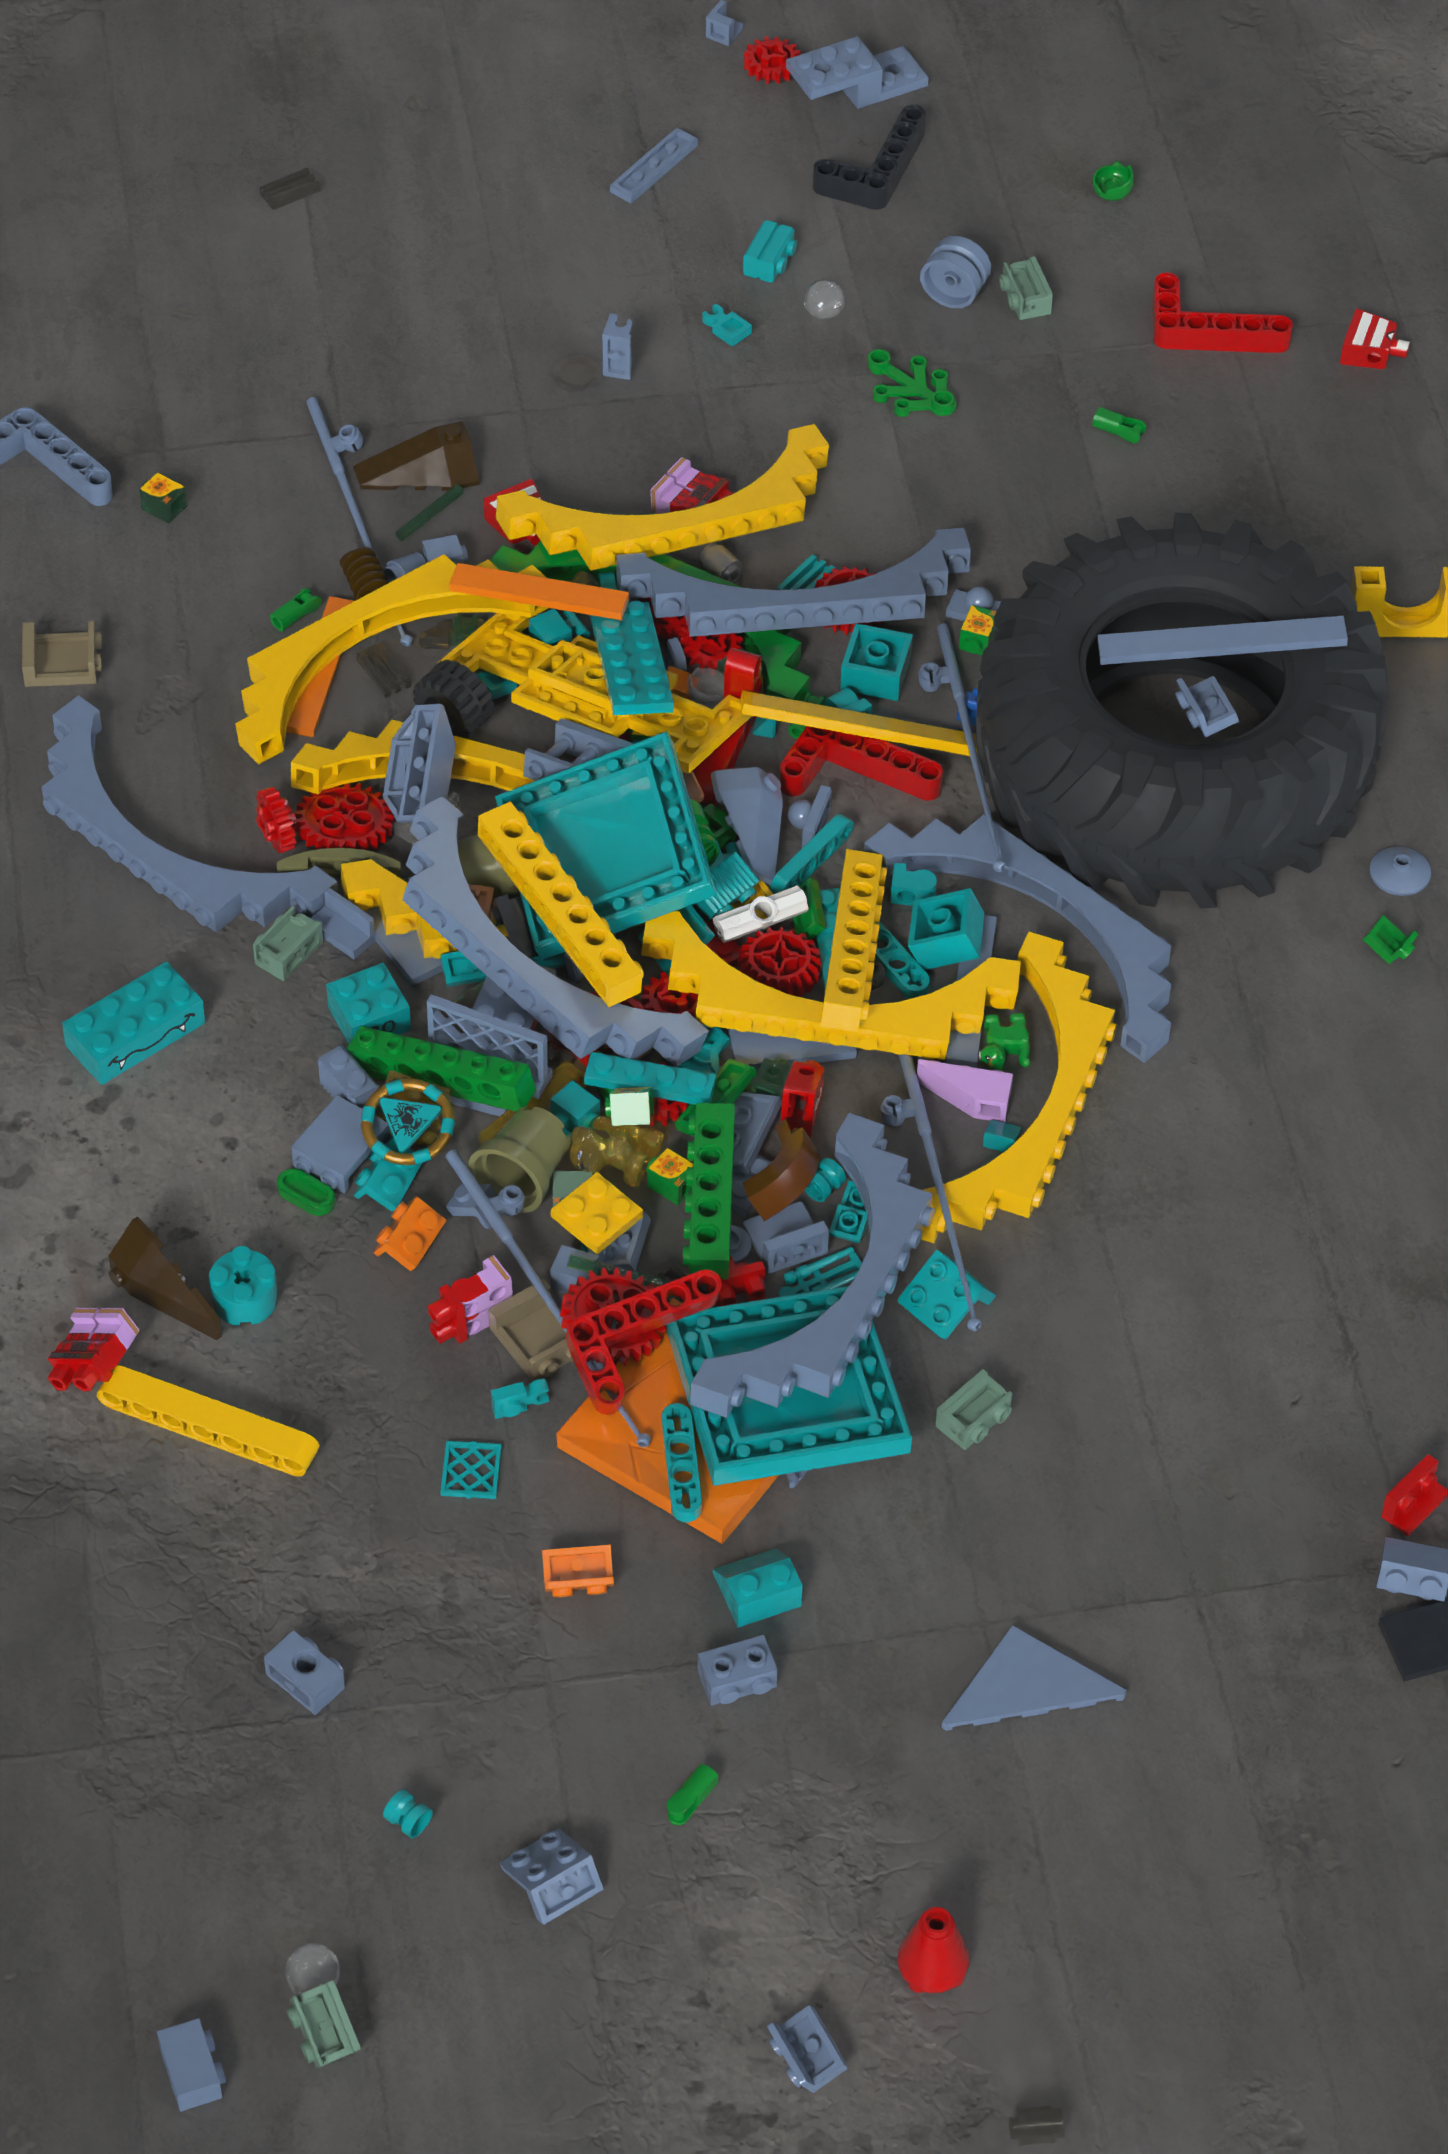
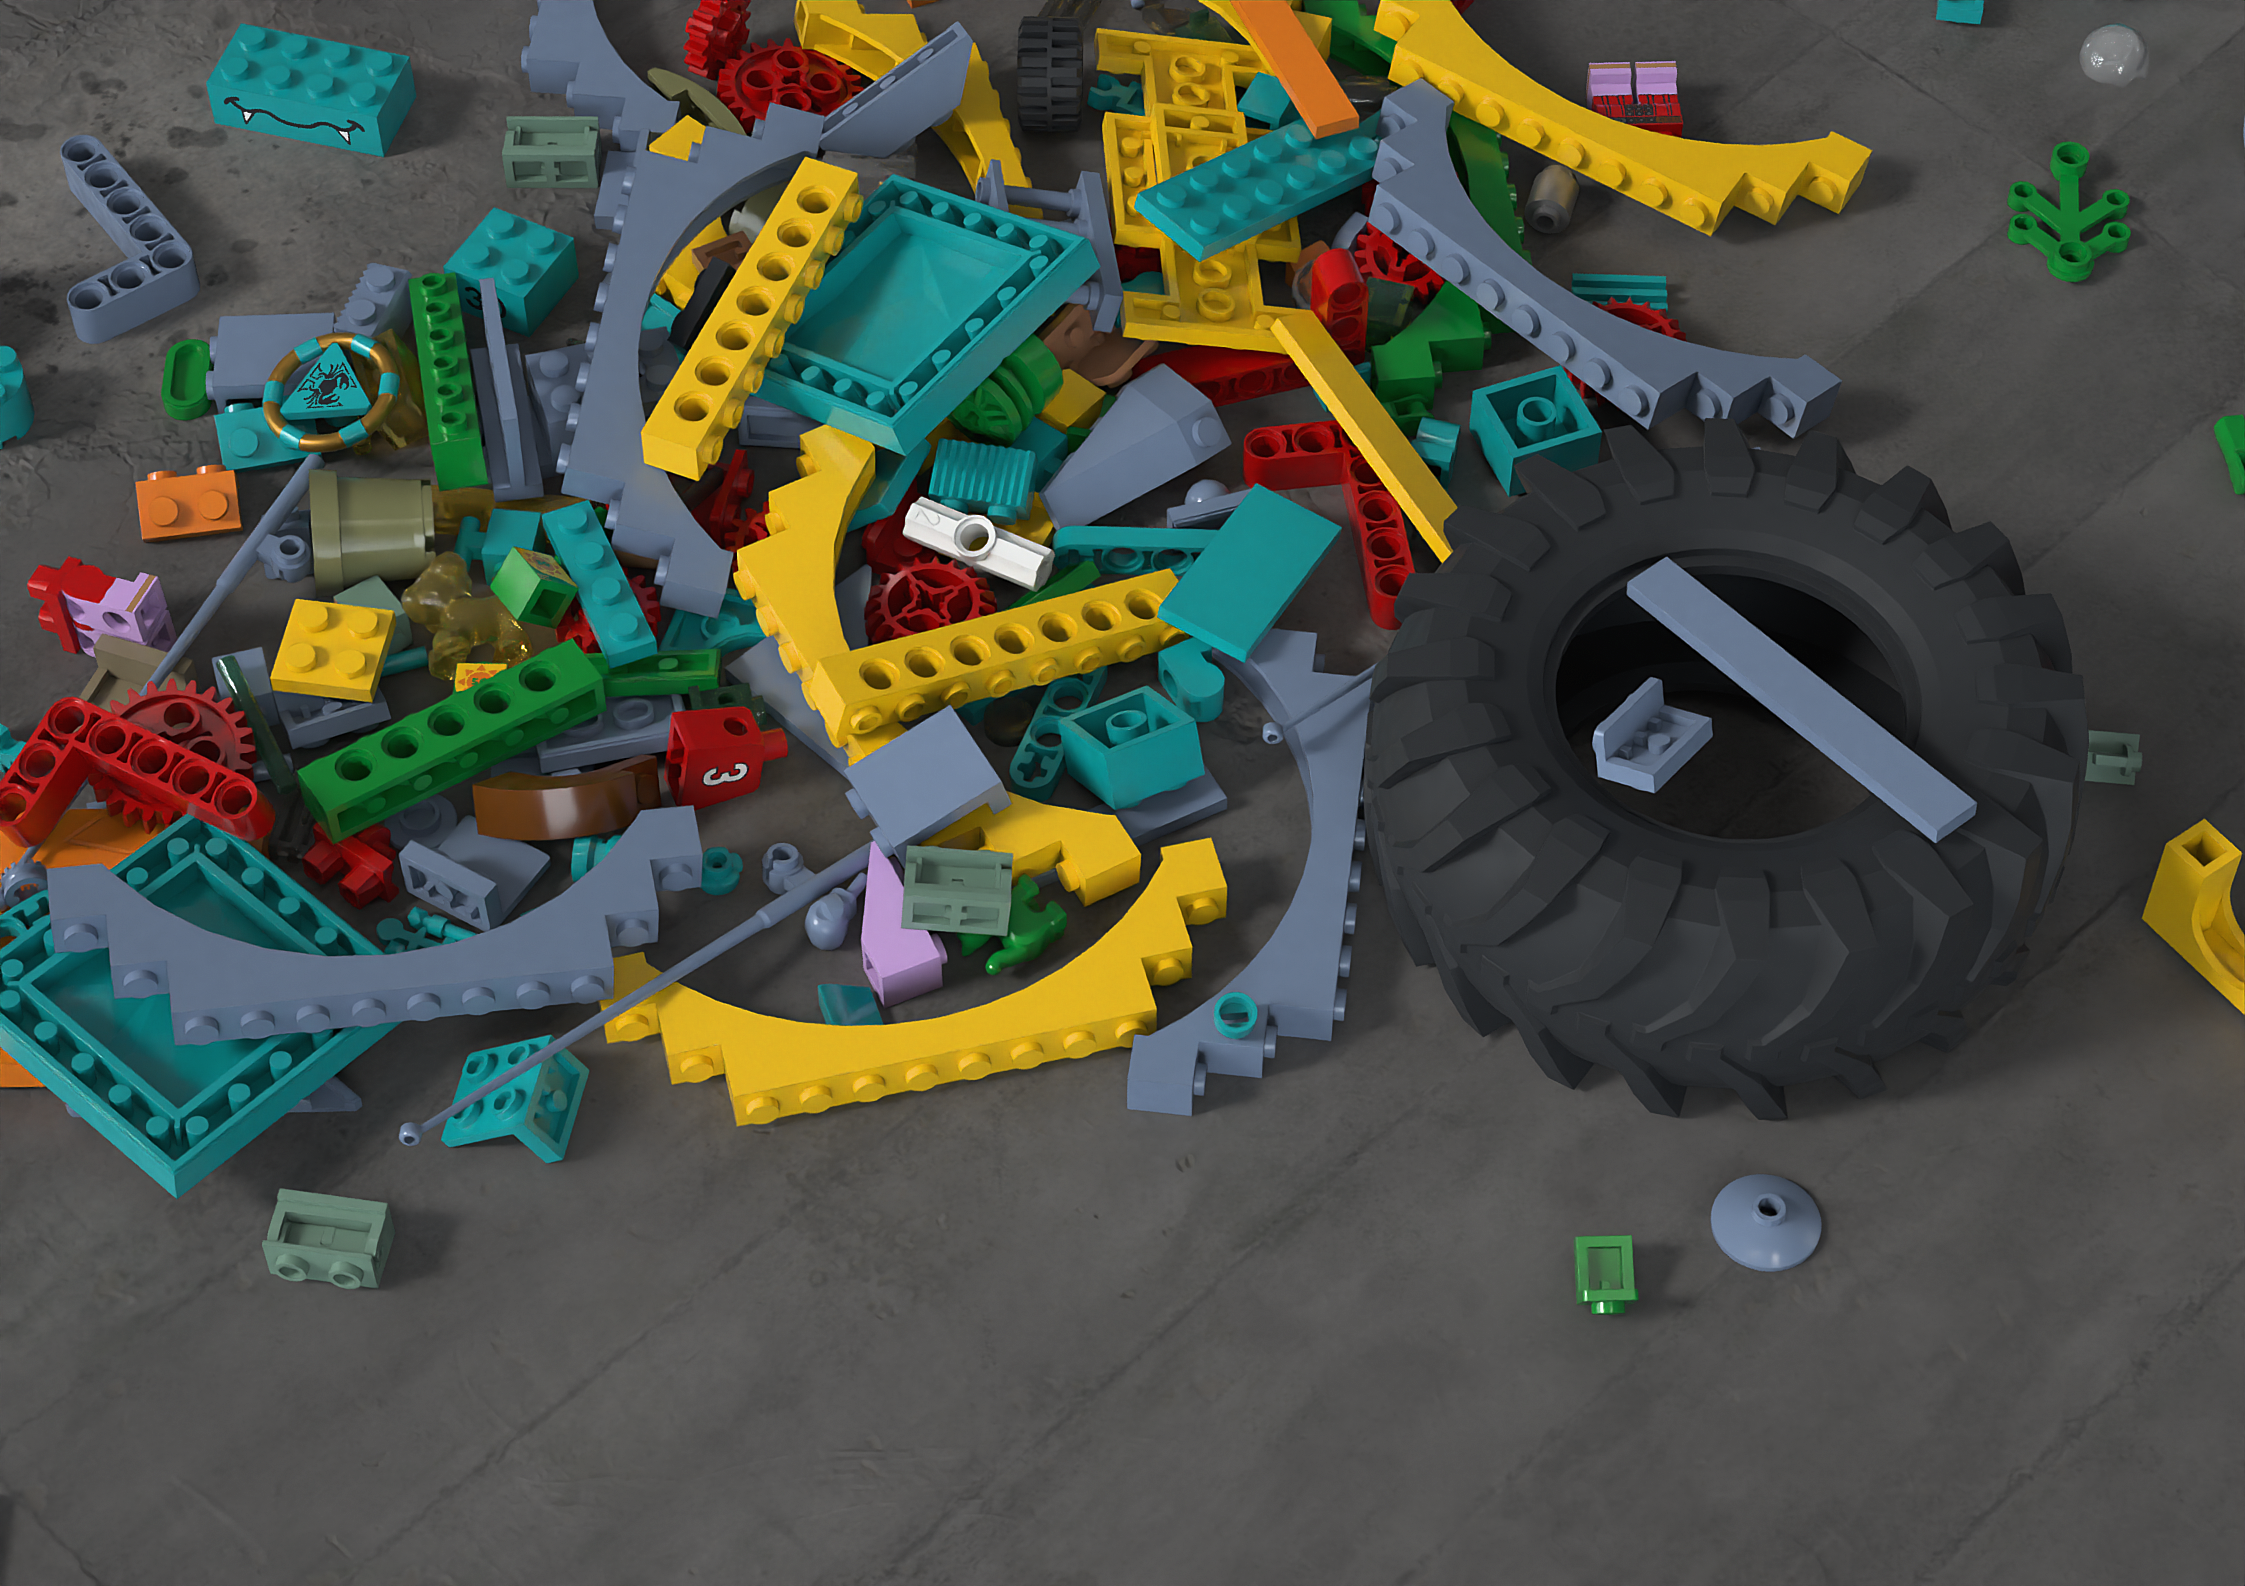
camera: 55 degrees right, 0 degrees up
(168, 1157) = (159, 260): none -> sand blue beam
(650, 1419) = (20, 875): none -> sand blue bush
(879, 819) = (1249, 572): none -> teal tile
(918, 1015) = (923, 783): none -> sand blue panel
(939, 1107) = (830, 916): none -> sand blue piece
(986, 1042) = (957, 890): none -> sand green hinge
(1156, 972) = (1234, 1007): none -> teal hinge

